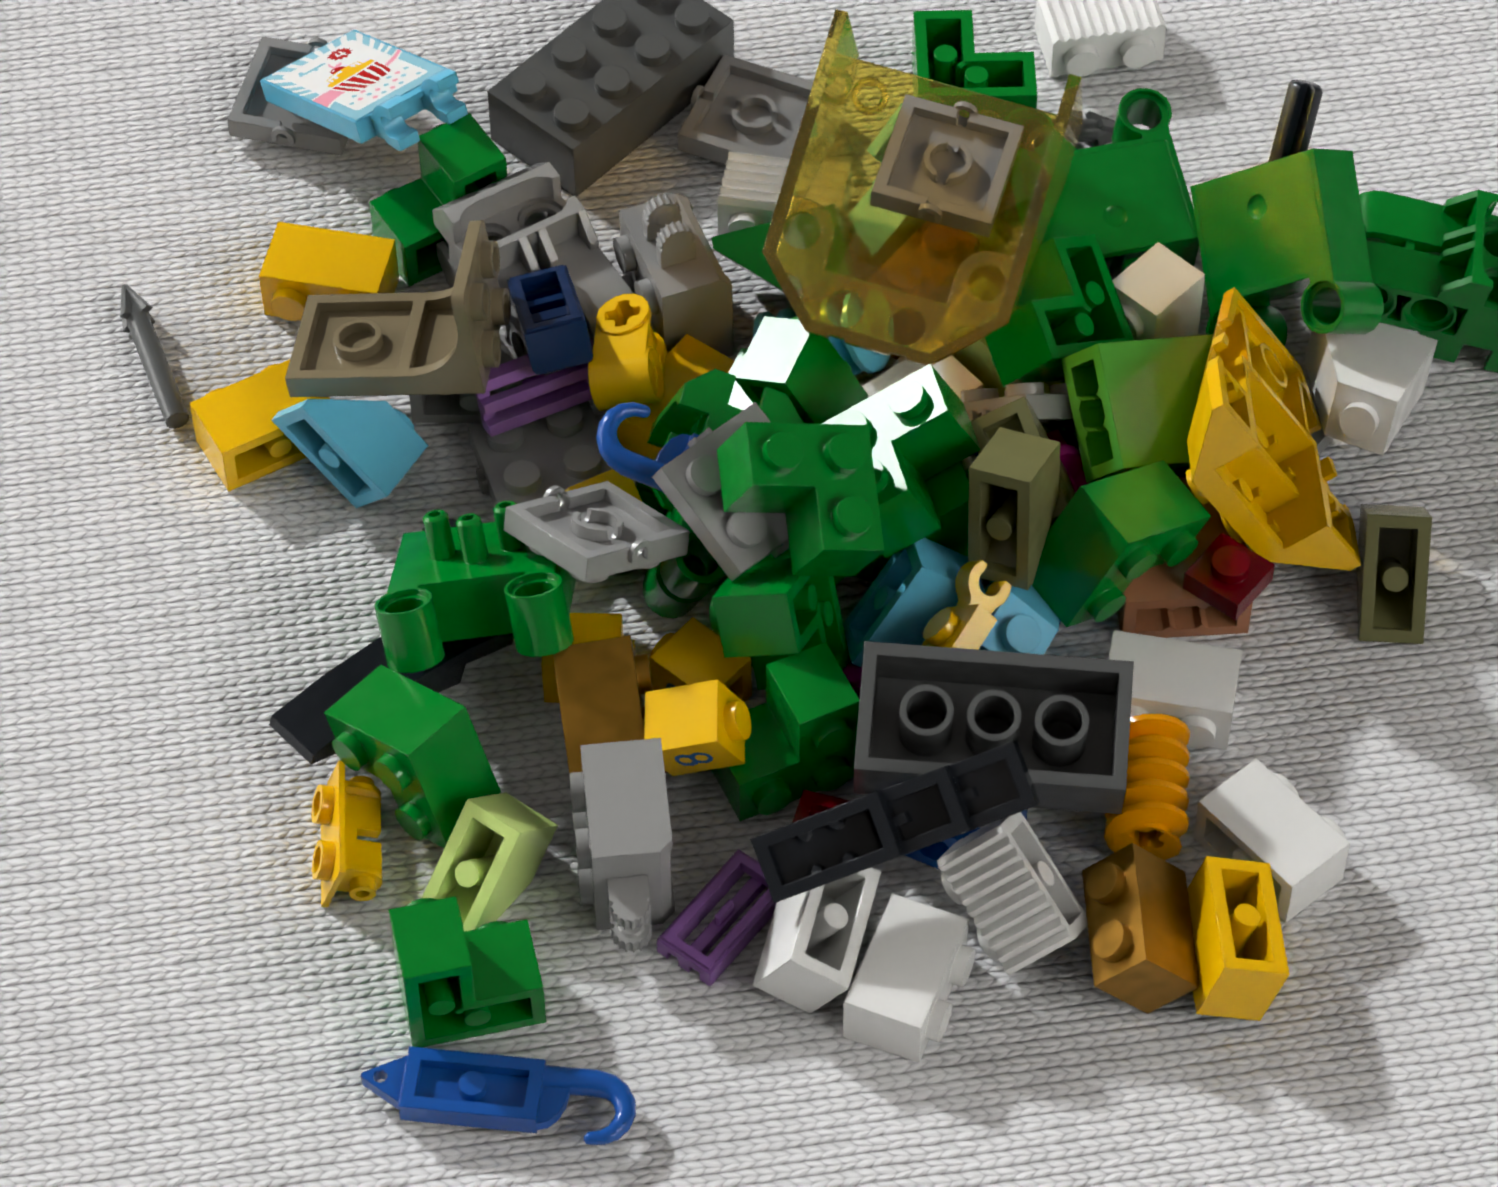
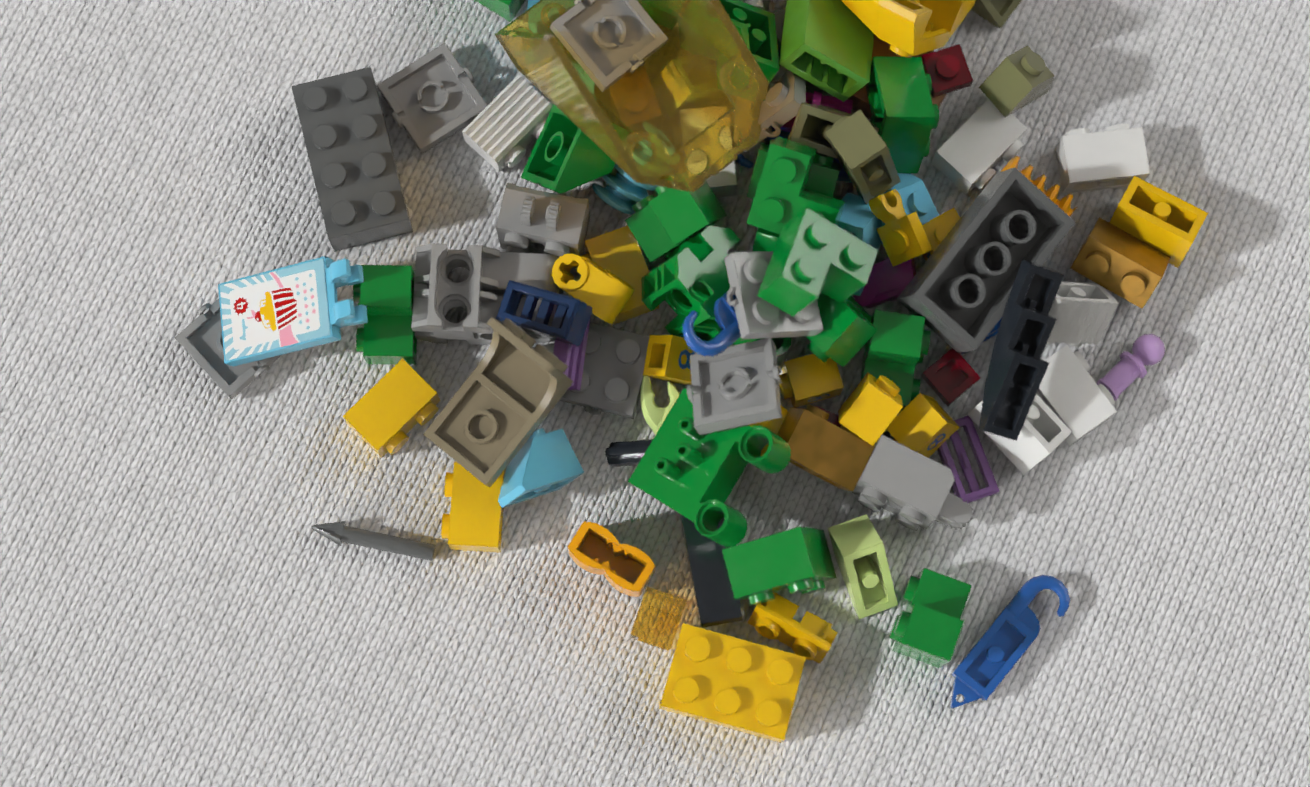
camera: 60 degrees left, 25 degrees up
(219, 803) = (732, 683): none -> yellow brick
(249, 679) = (658, 618): none -> clear yellow panel
(291, 581) = (601, 554): none -> light orange brick
(718, 819) = (922, 425): none -> yellow brick
(1047, 1043) = (1146, 351): none -> lavender pin
(1288, 666) = (1017, 81): none -> olive slope

